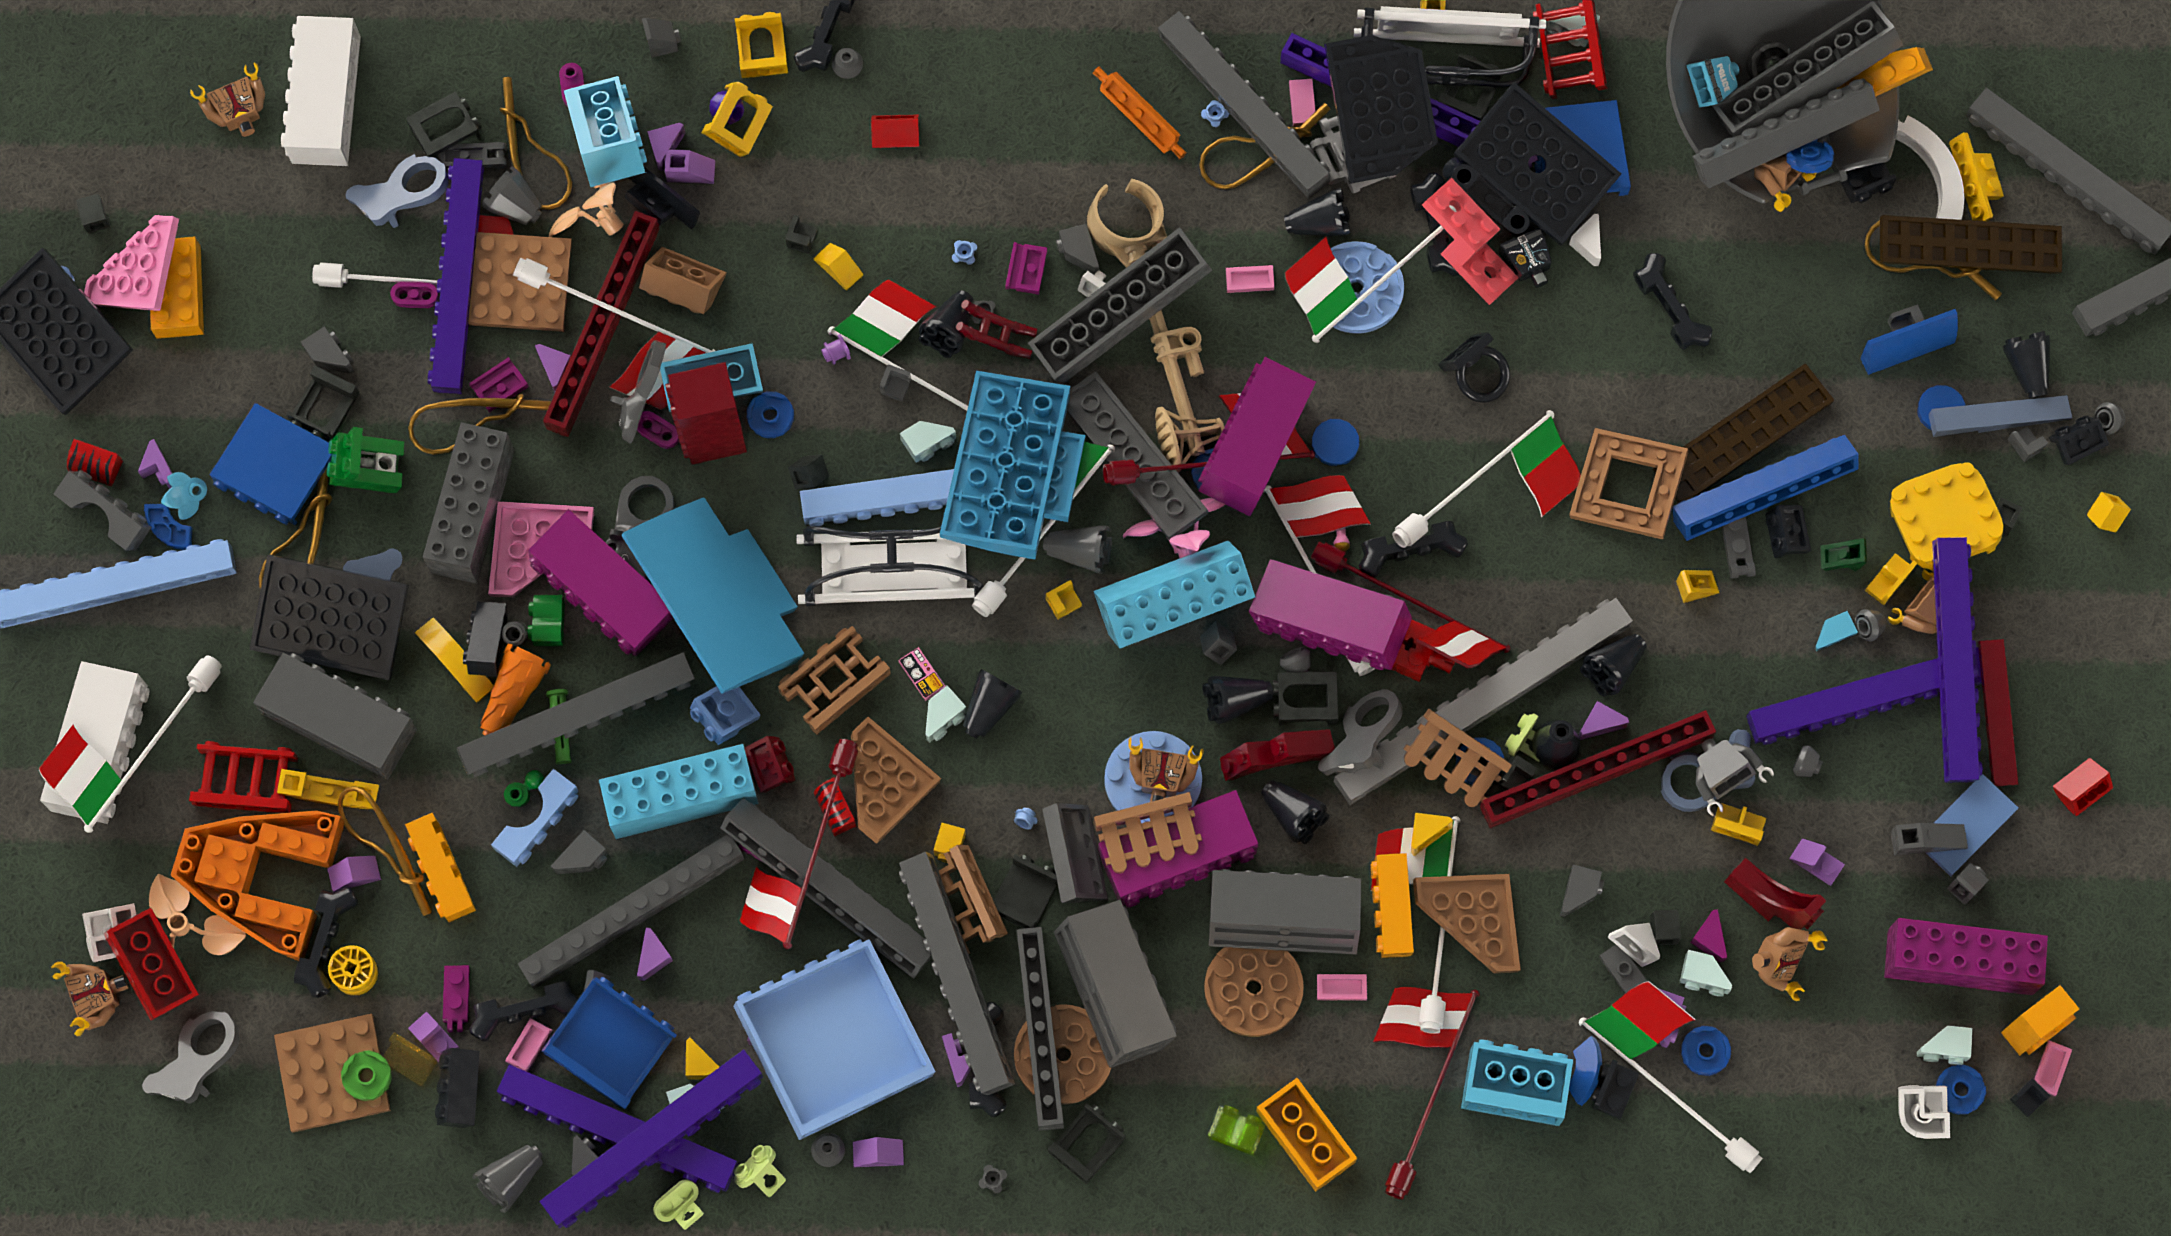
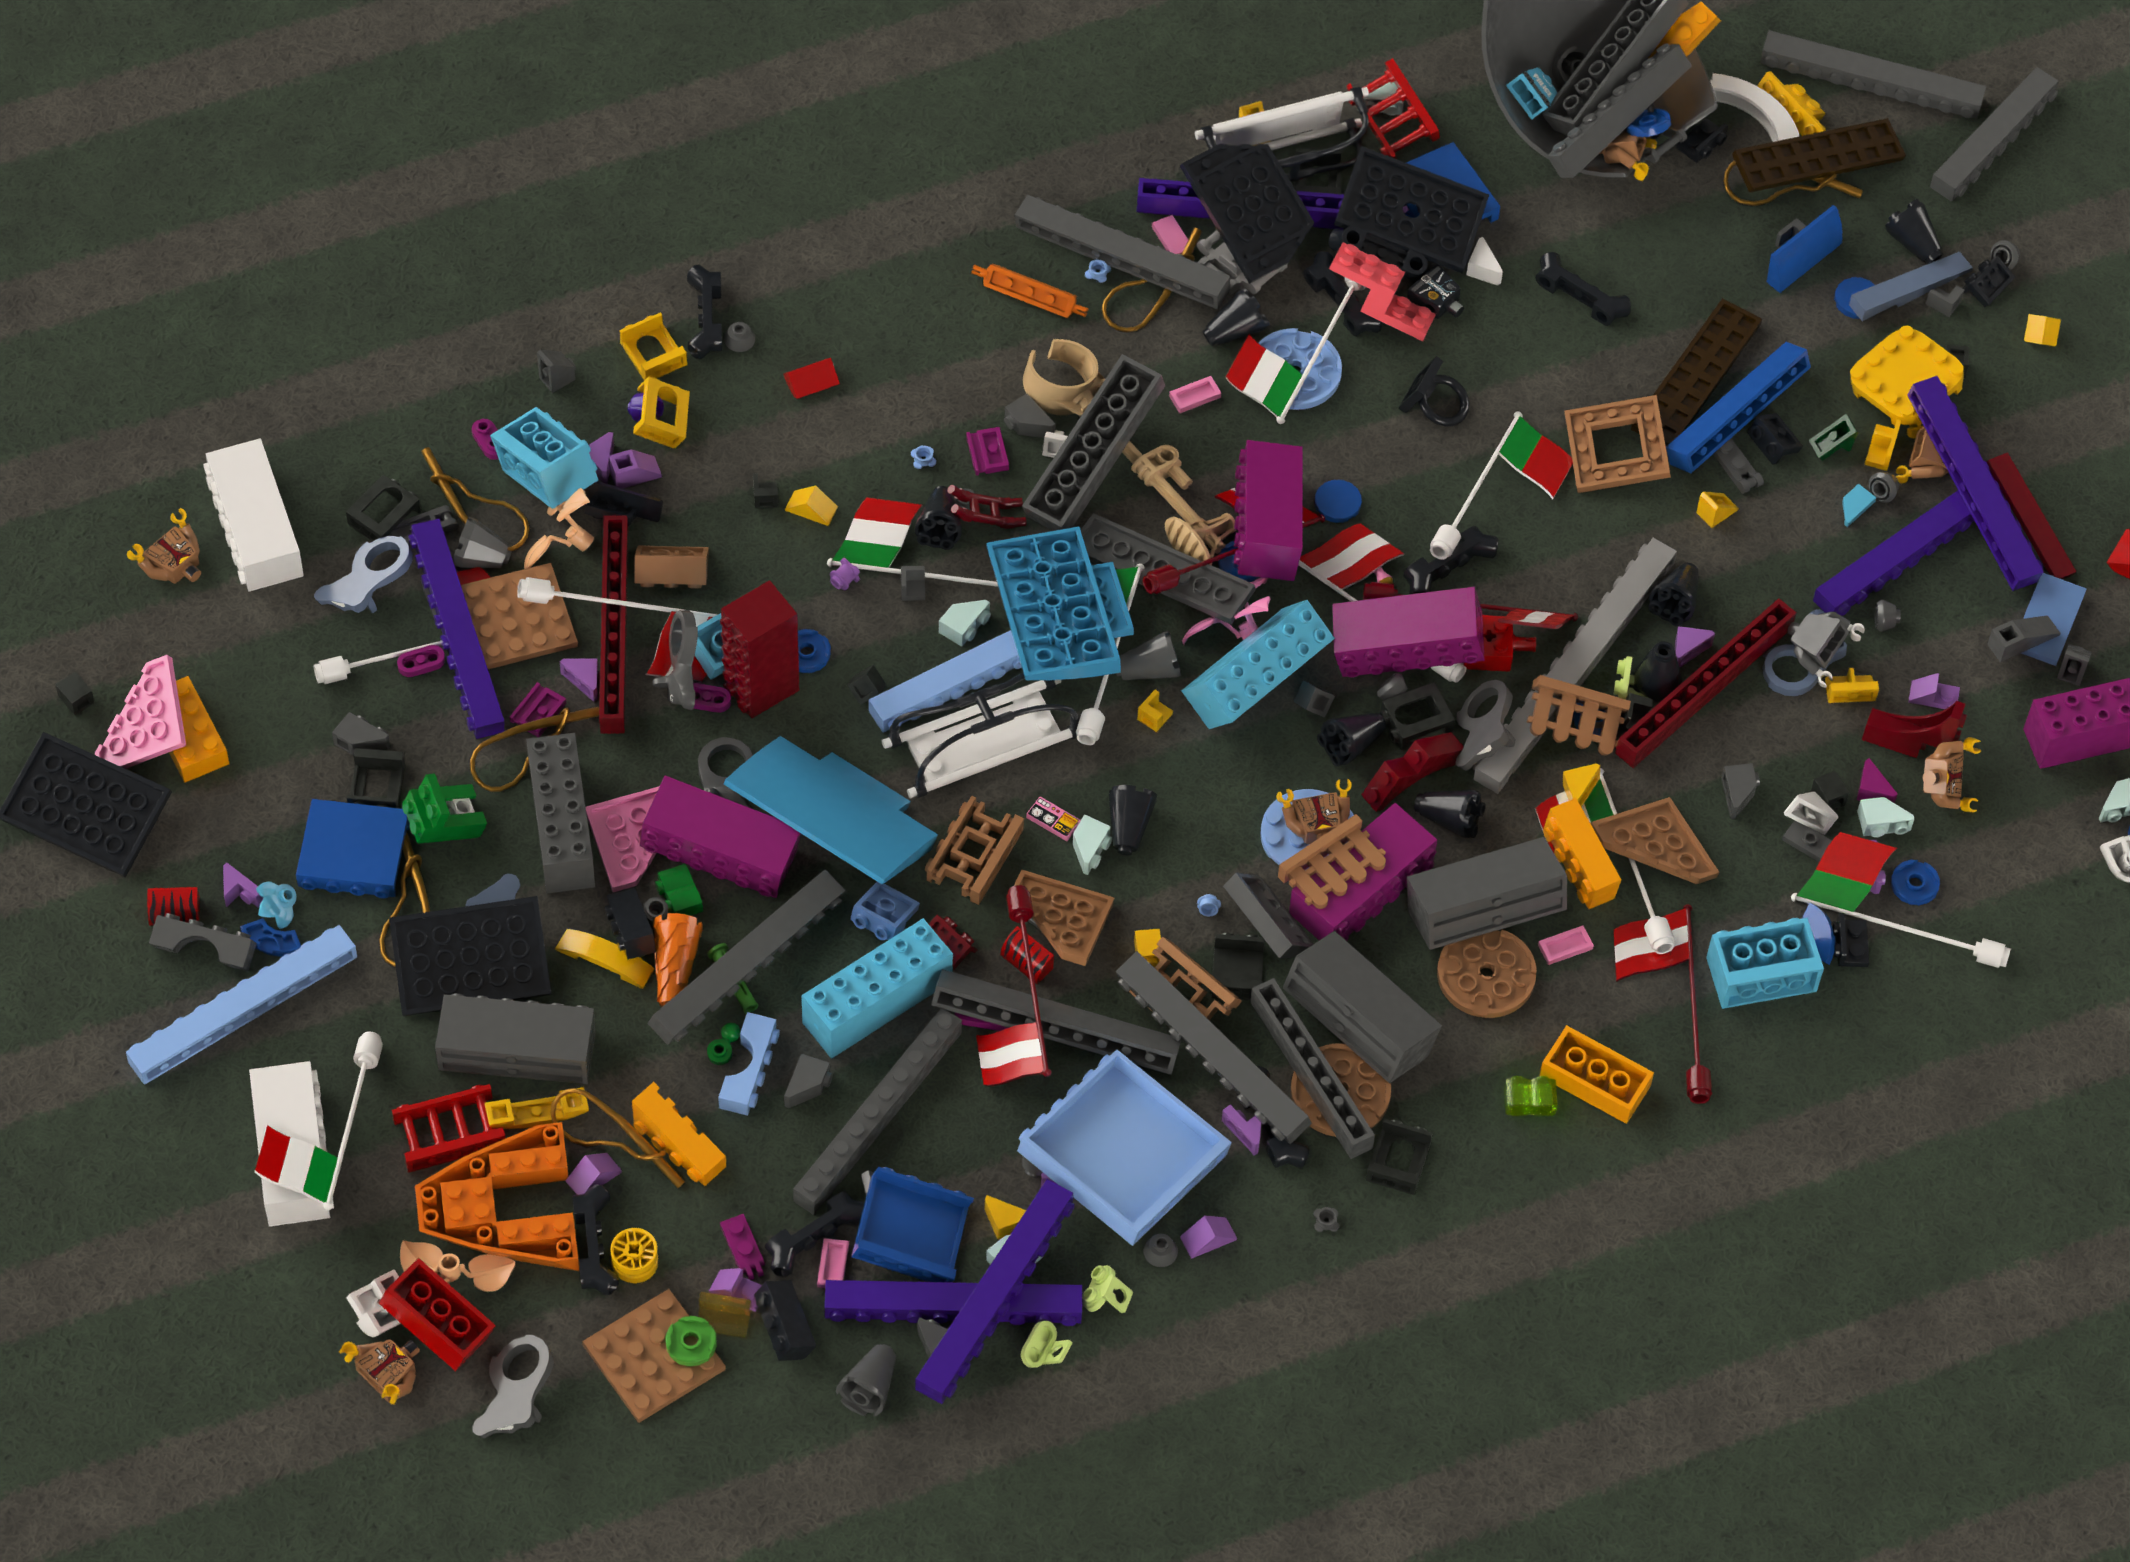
camera: 25 degrees left, 15 degrees down
(652, 957) = (917, 1141): medium lavender slope -> none

